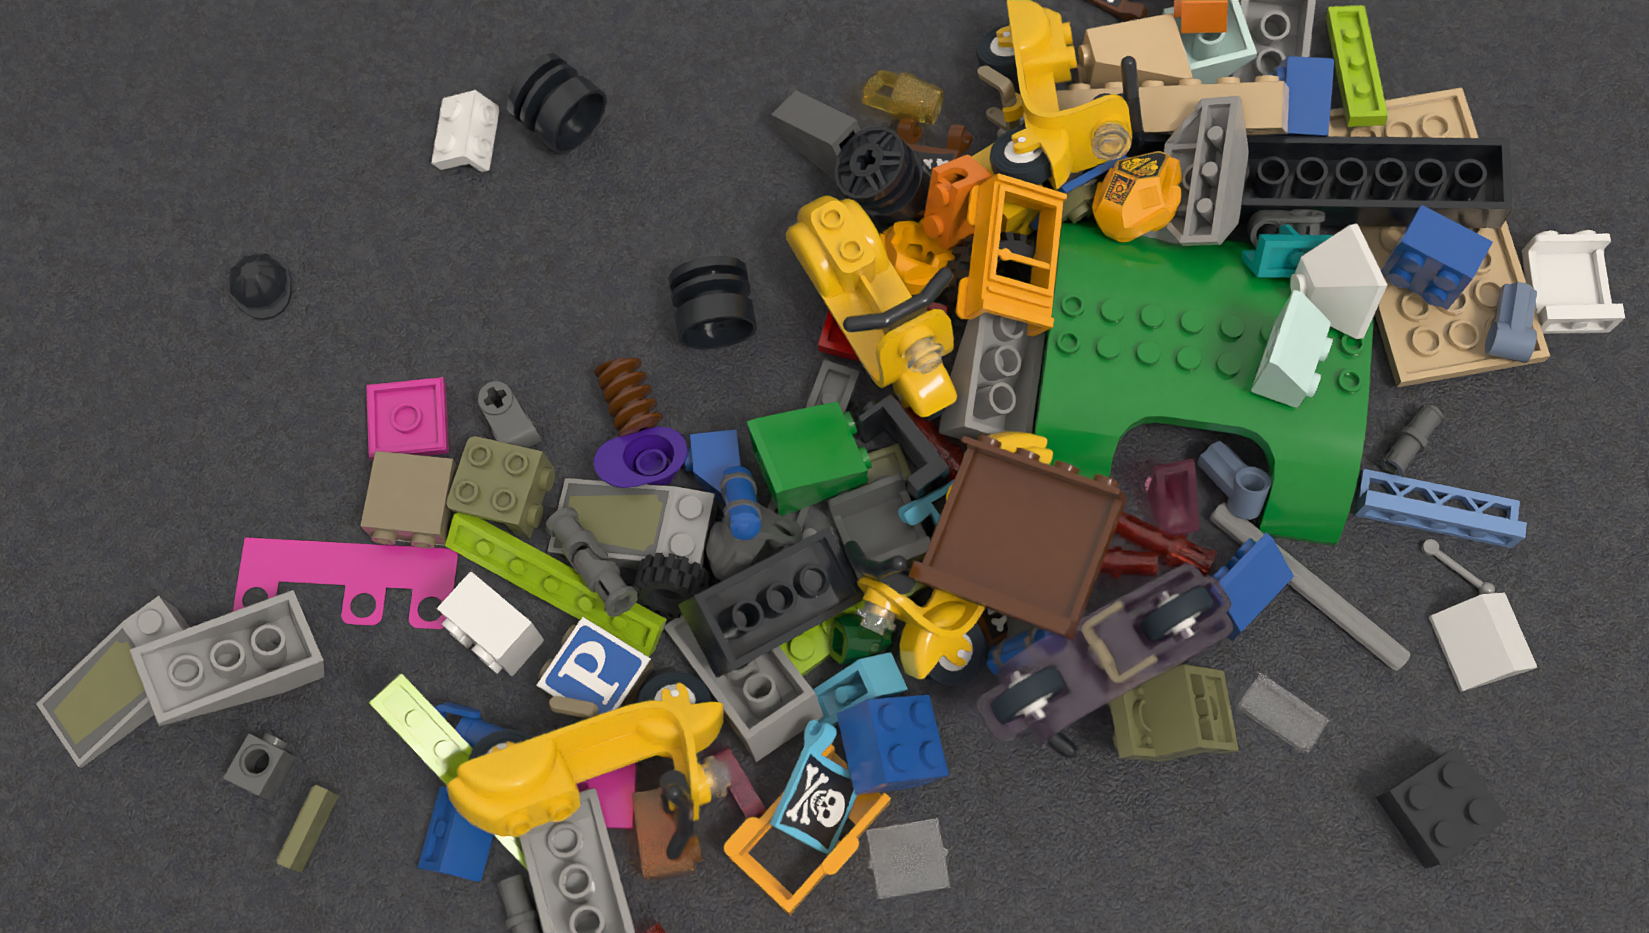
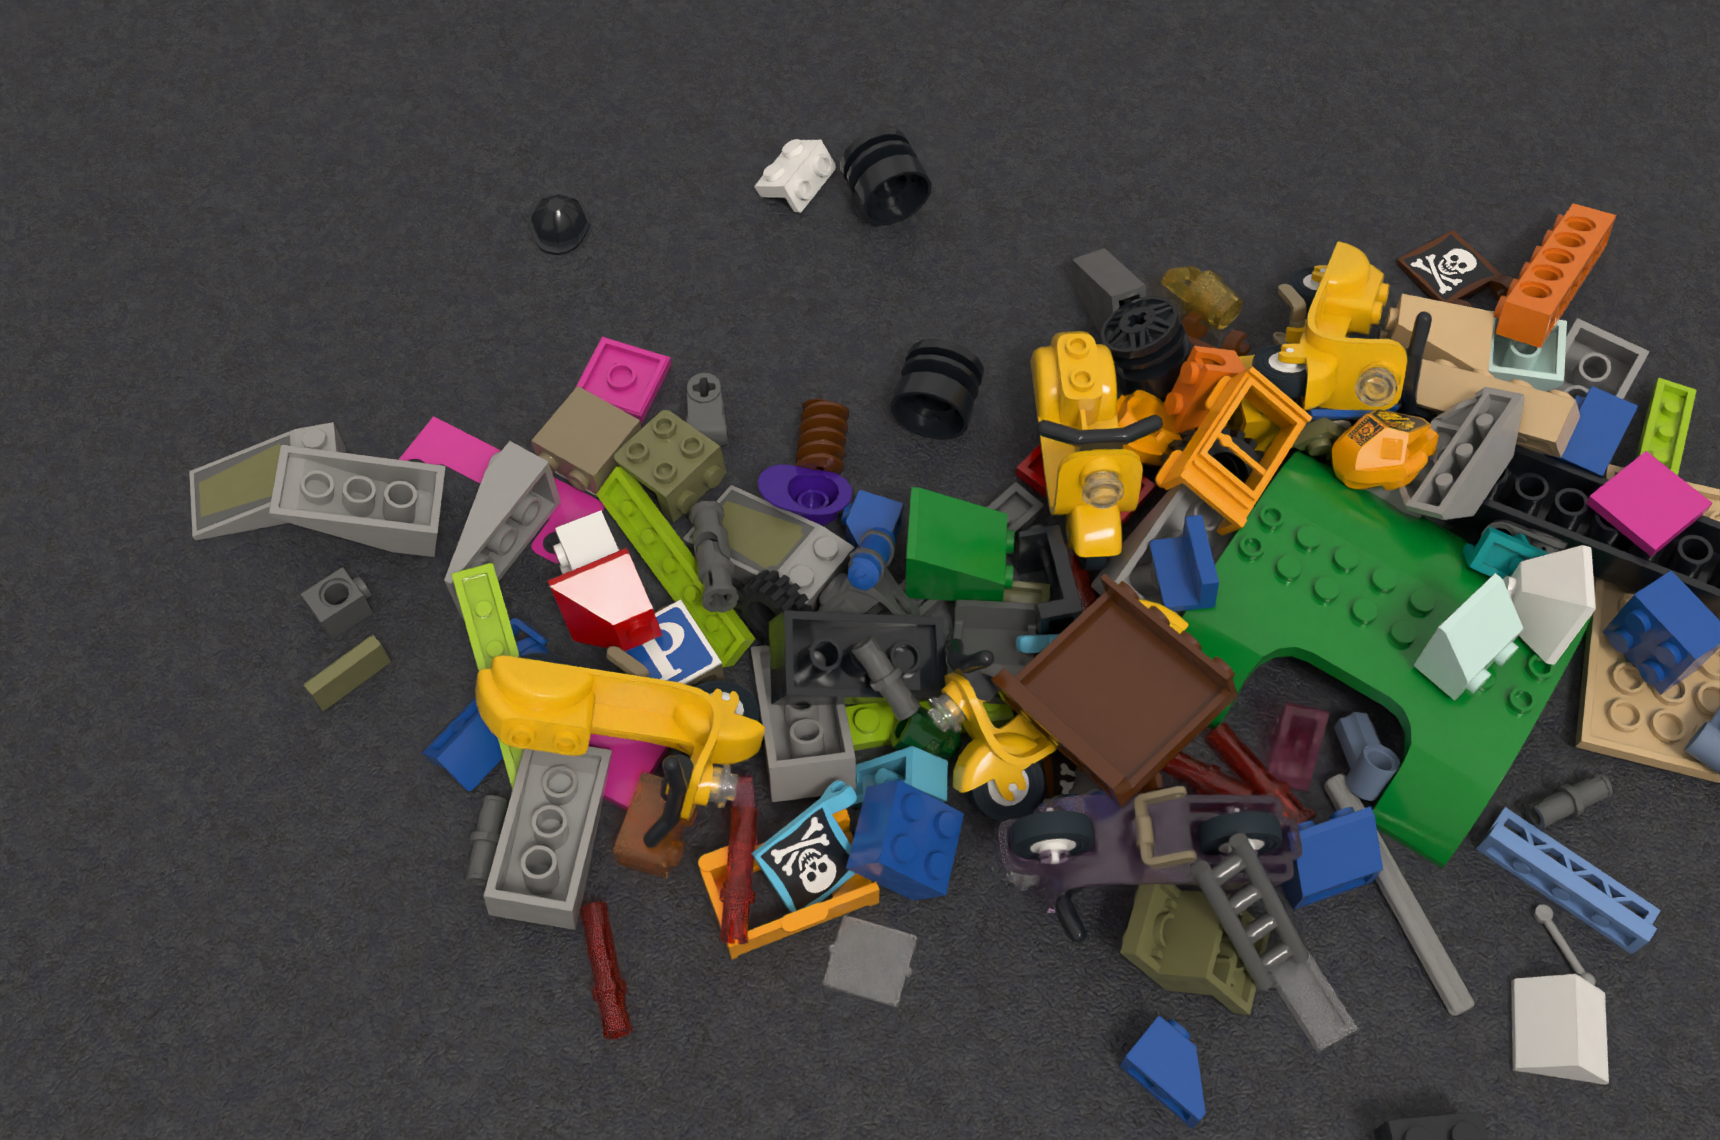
camera: 25 degrees right, 10 degrees down
(376, 602) = (506, 513): none -> light grey slope
(525, 659) = (606, 603): none -> slope
(768, 848) = (738, 883): none -> clear red pin
(809, 611) = (886, 677): none -> dark grey pin
(1021, 388) = (1186, 568): none -> blue panel
(1195, 682) = (1228, 908): none -> dark grey bar
(1196, 830) = (1168, 1069): none -> blue slope
(1377, 146) = (1648, 503): none -> dark pink tile

